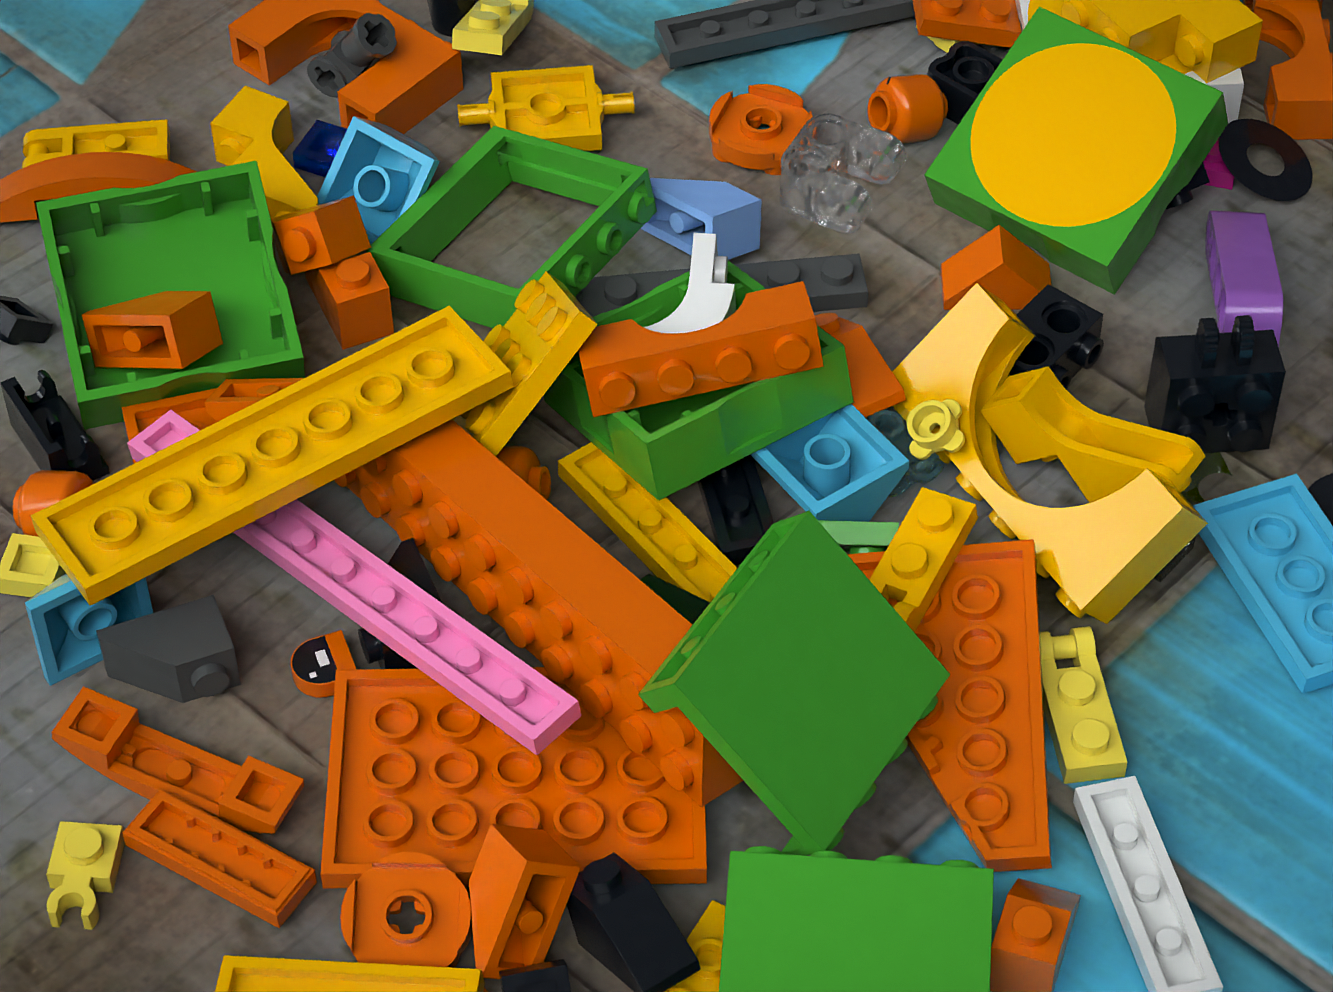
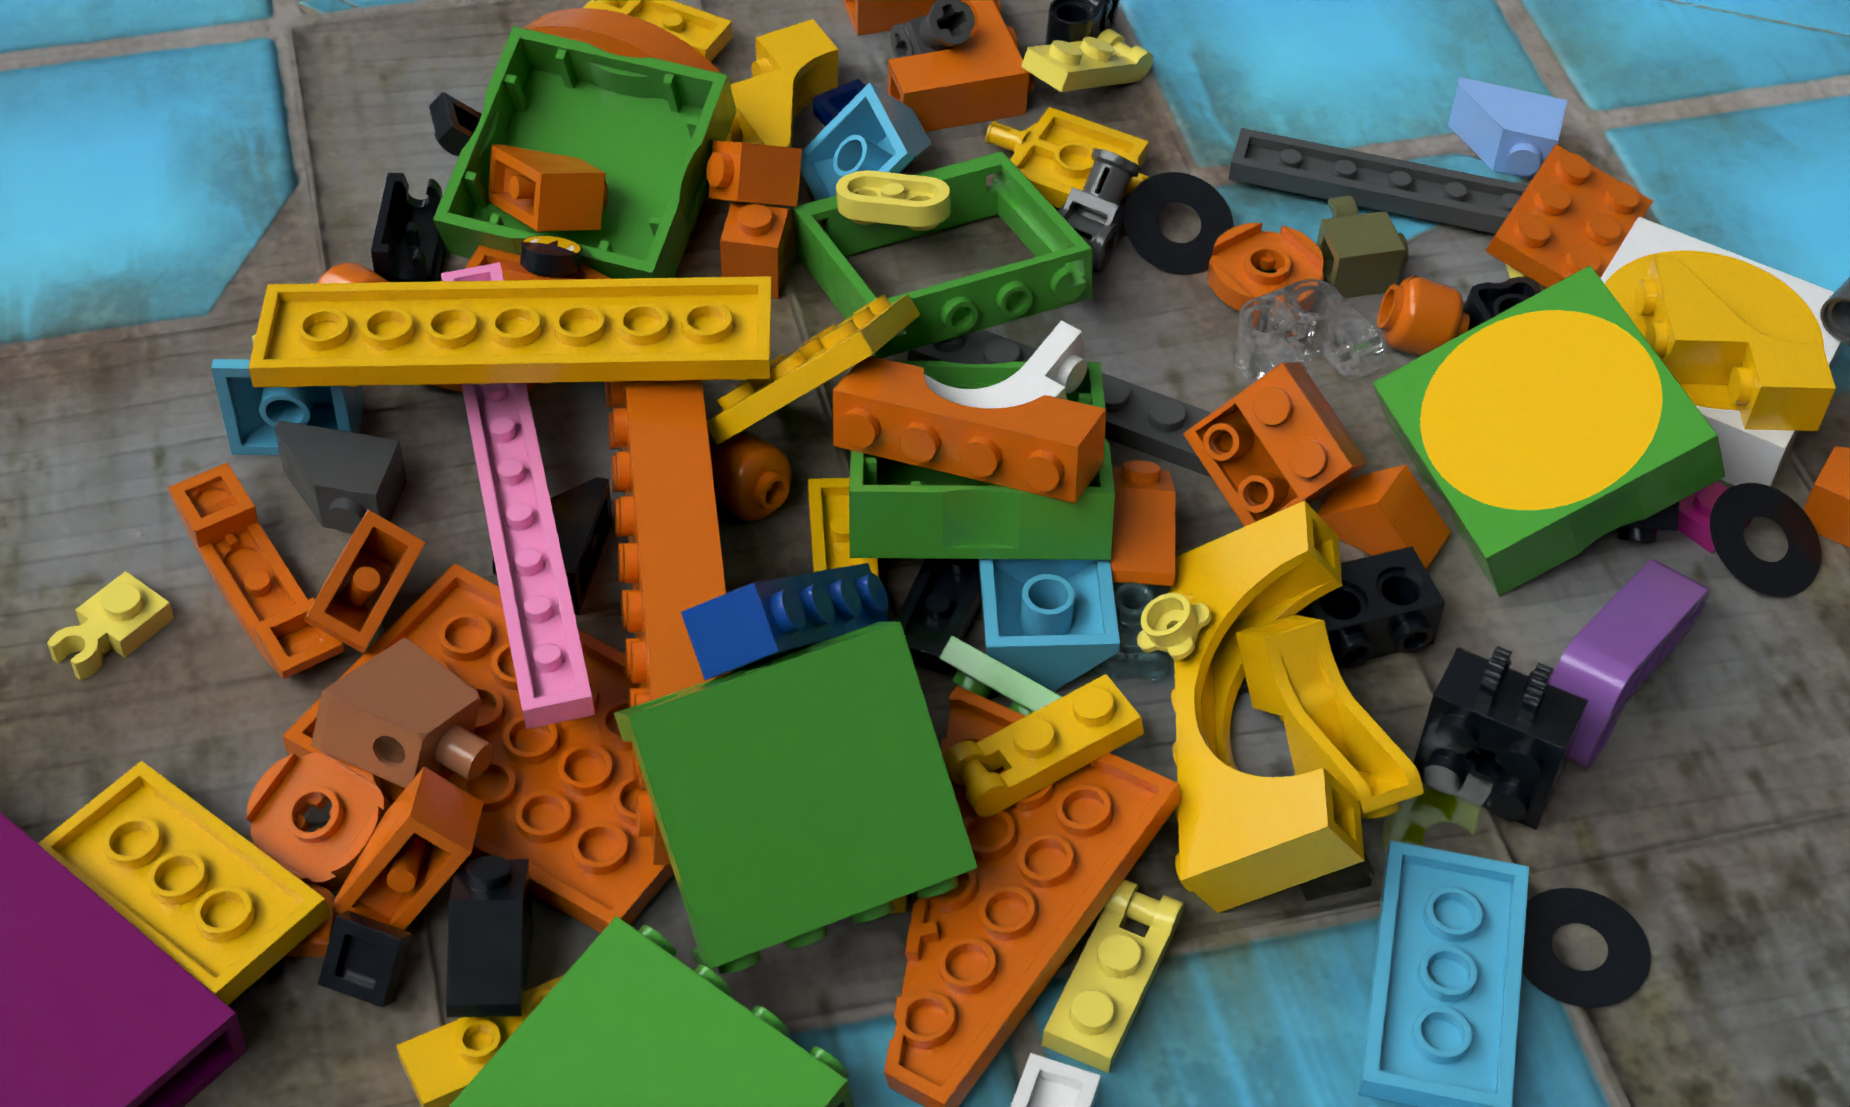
camera: 30 degrees right, 0 degrees up
(213, 383) = (550, 256): none -> black tile
(220, 857) = (222, 676): orange plate -> none
(284, 717) = (364, 581): none -> orange slope
(316, 663) = (458, 545): tile -> none
(433, 801) = (402, 716): none -> nougat torso
(453, 203) = (893, 199): none -> light yellow plate
(610, 137) = (1096, 208): none -> dark grey connector
(632, 123) = (1142, 227): none -> black piece
(692, 560) = (782, 616): none -> blue brick
(705, 207) = (1134, 326): light blue slope -> none
(822, 75) = (1360, 250): none -> olive brick
(890, 261) = (1275, 445): none -> orange slope

